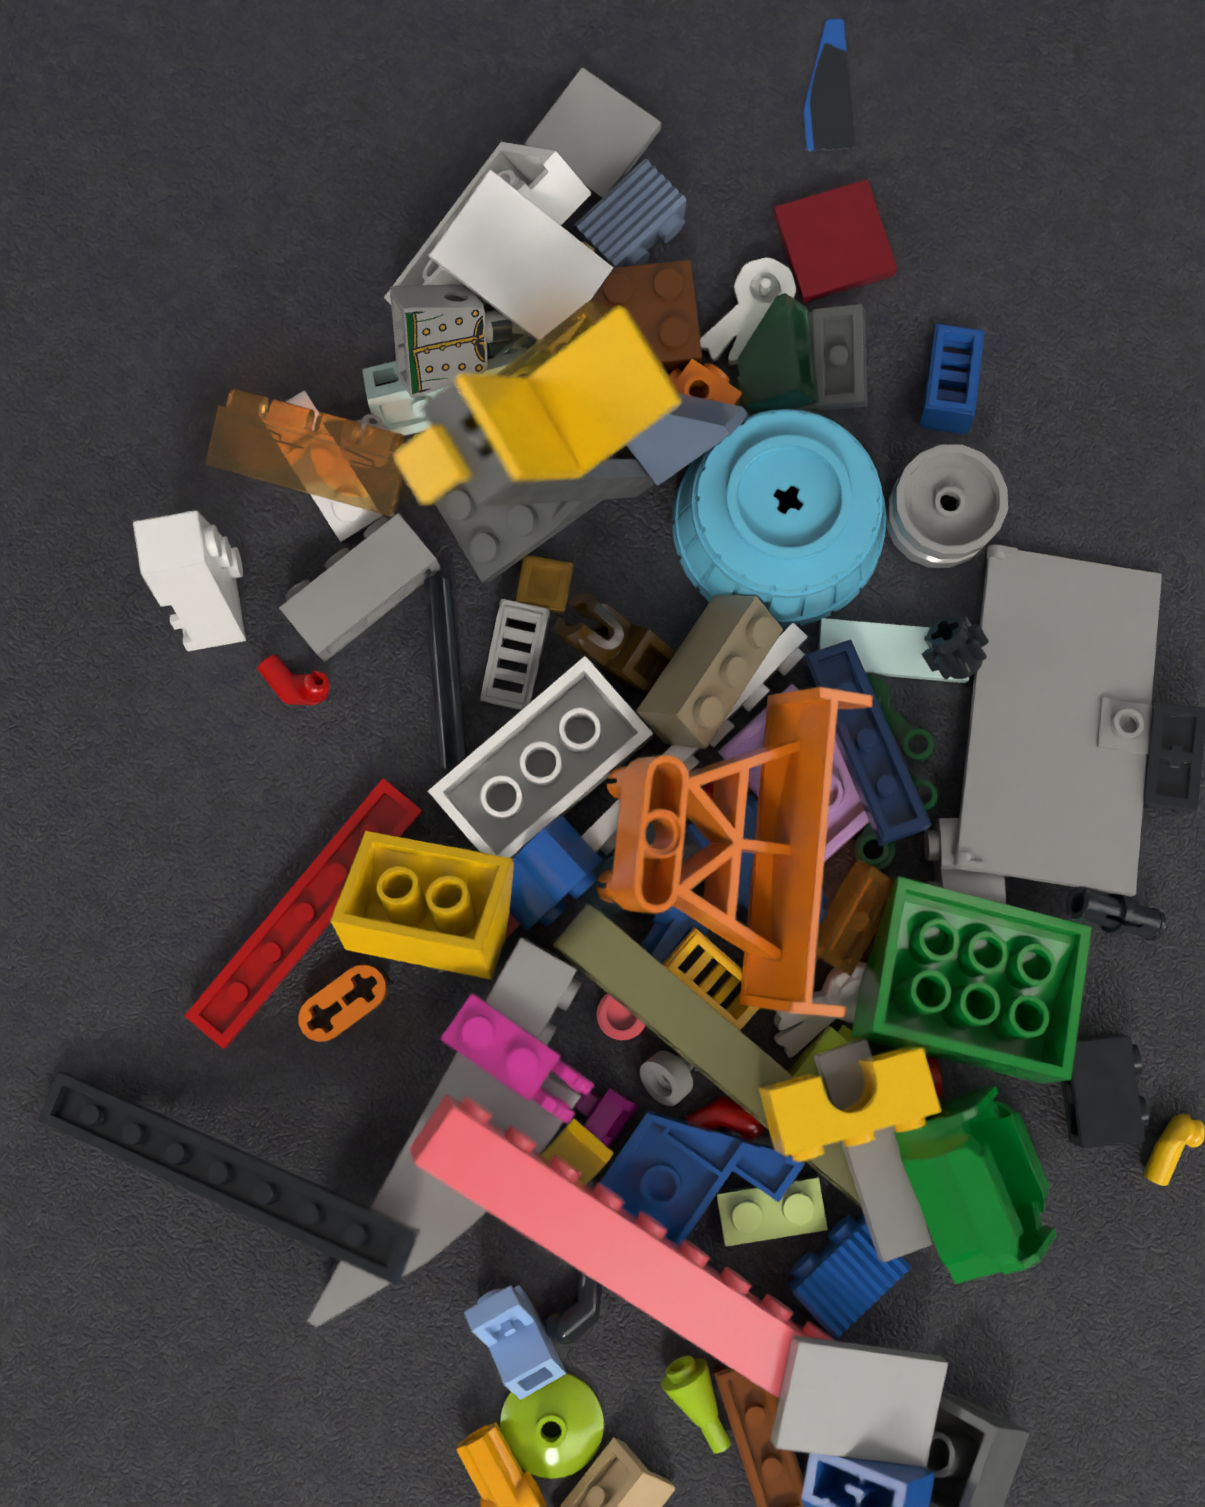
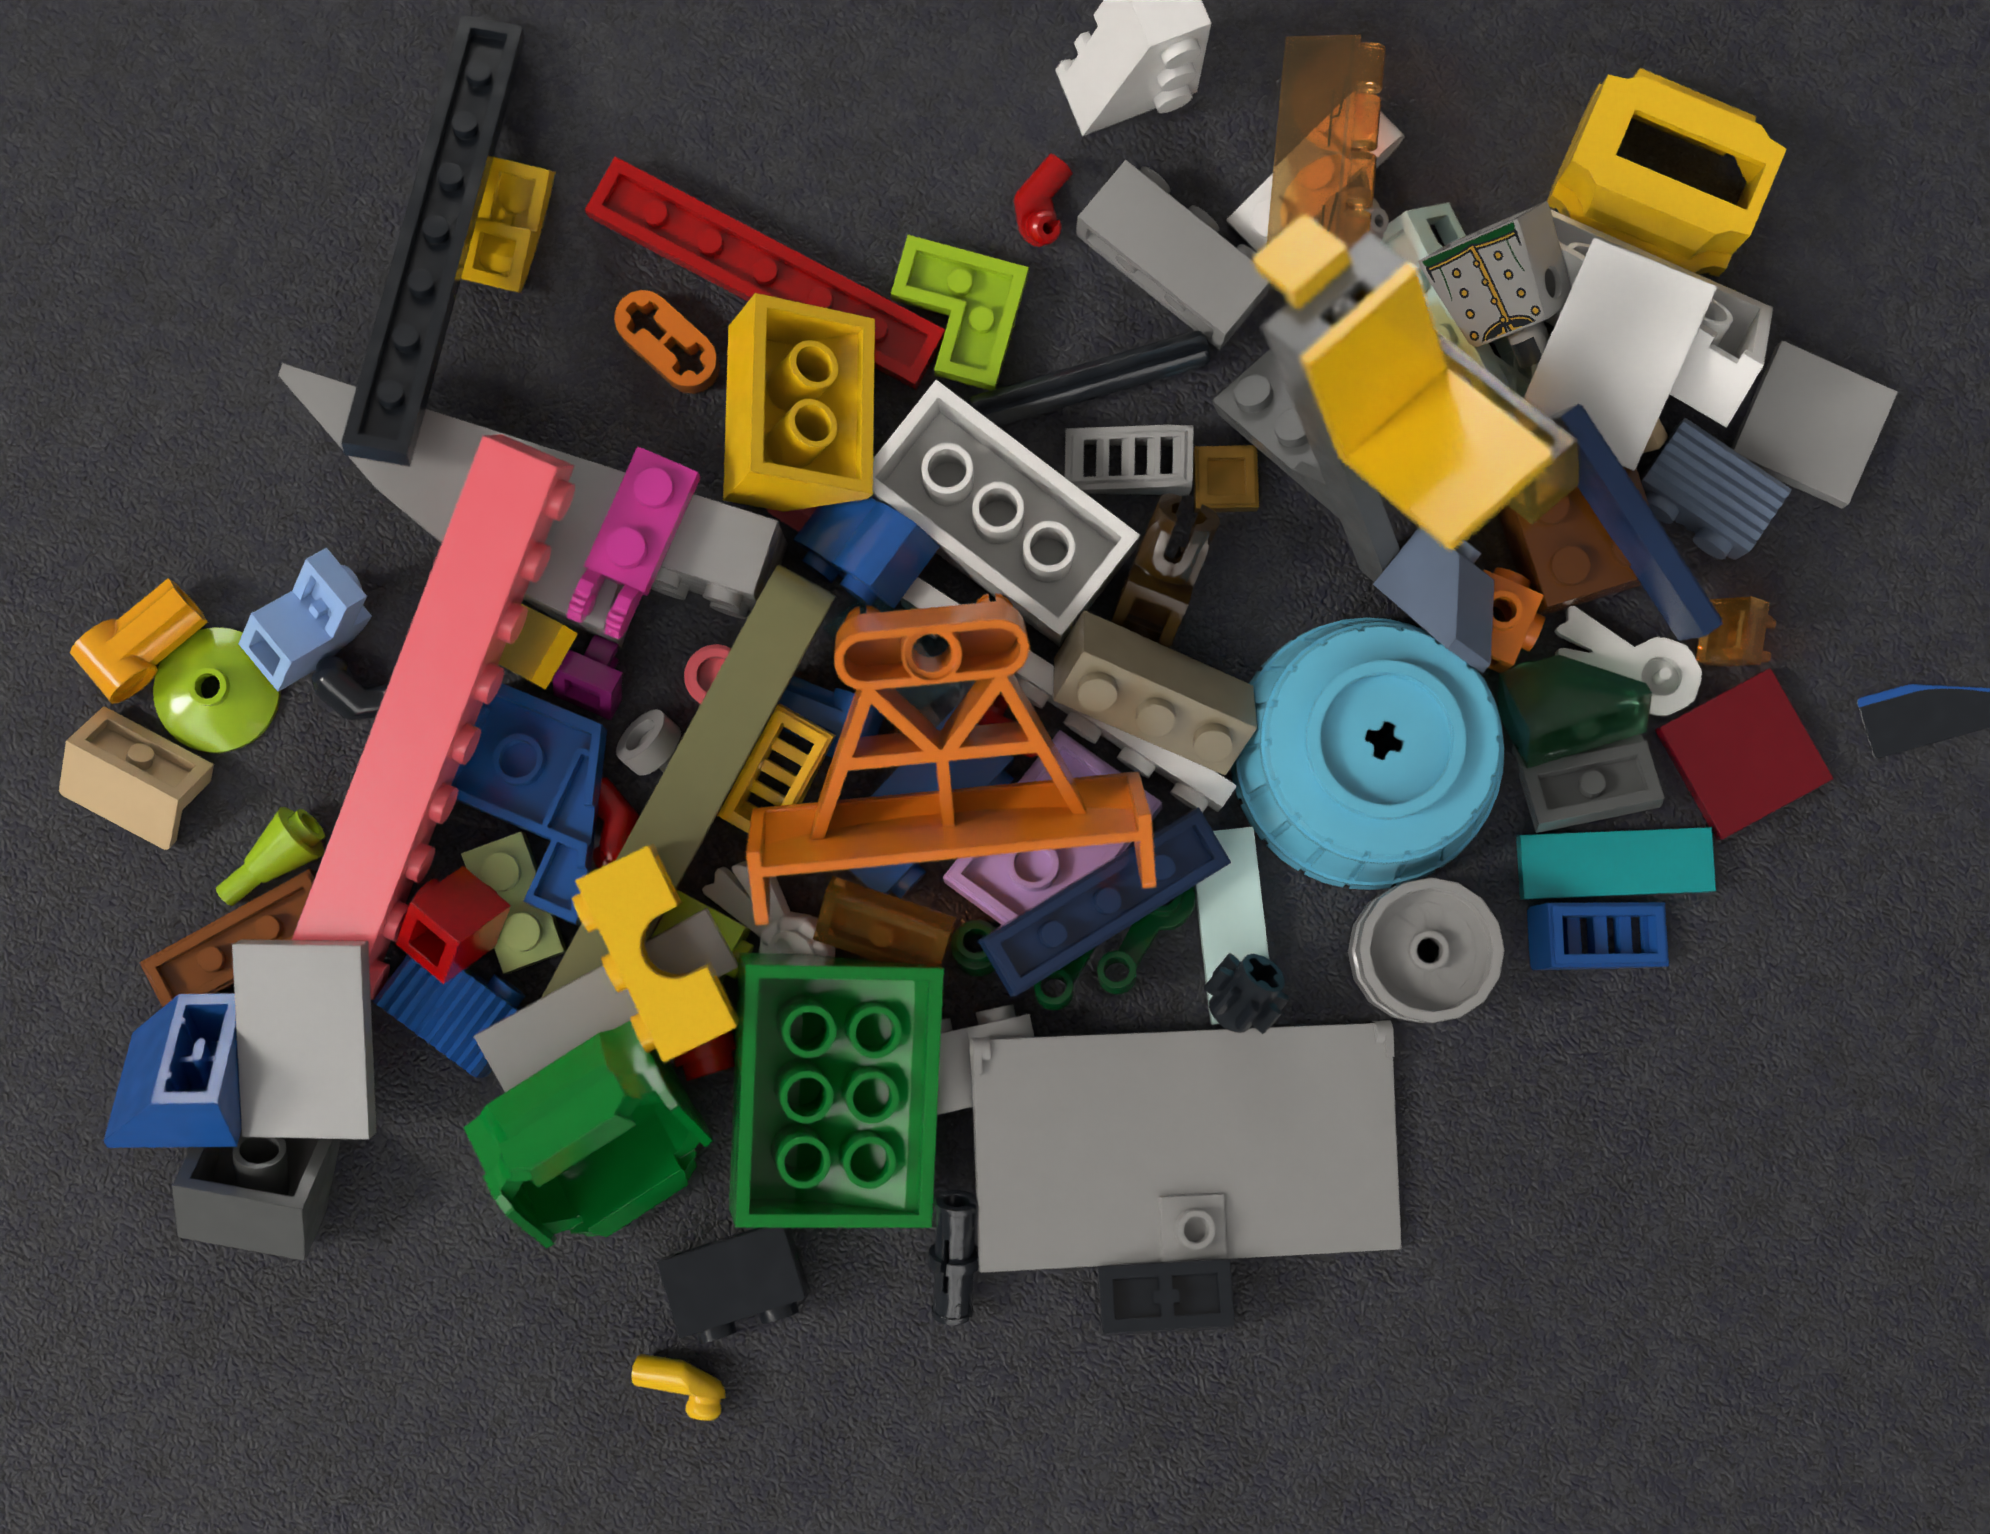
camera: 80 degrees right, 0 degrees up
(220, 1112) = (508, 225): none -> yellow slope
(363, 746) = (978, 297): none -> lime plate
(406, 216) = (1650, 207): none -> yellow piece
(663, 274) = (1637, 531): none -> dark blue tile
(742, 227) = (1740, 636): none -> clear orange tile
(787, 1263) = (452, 923): none -> red brick
(900, 353) = (1615, 863): none -> teal tile

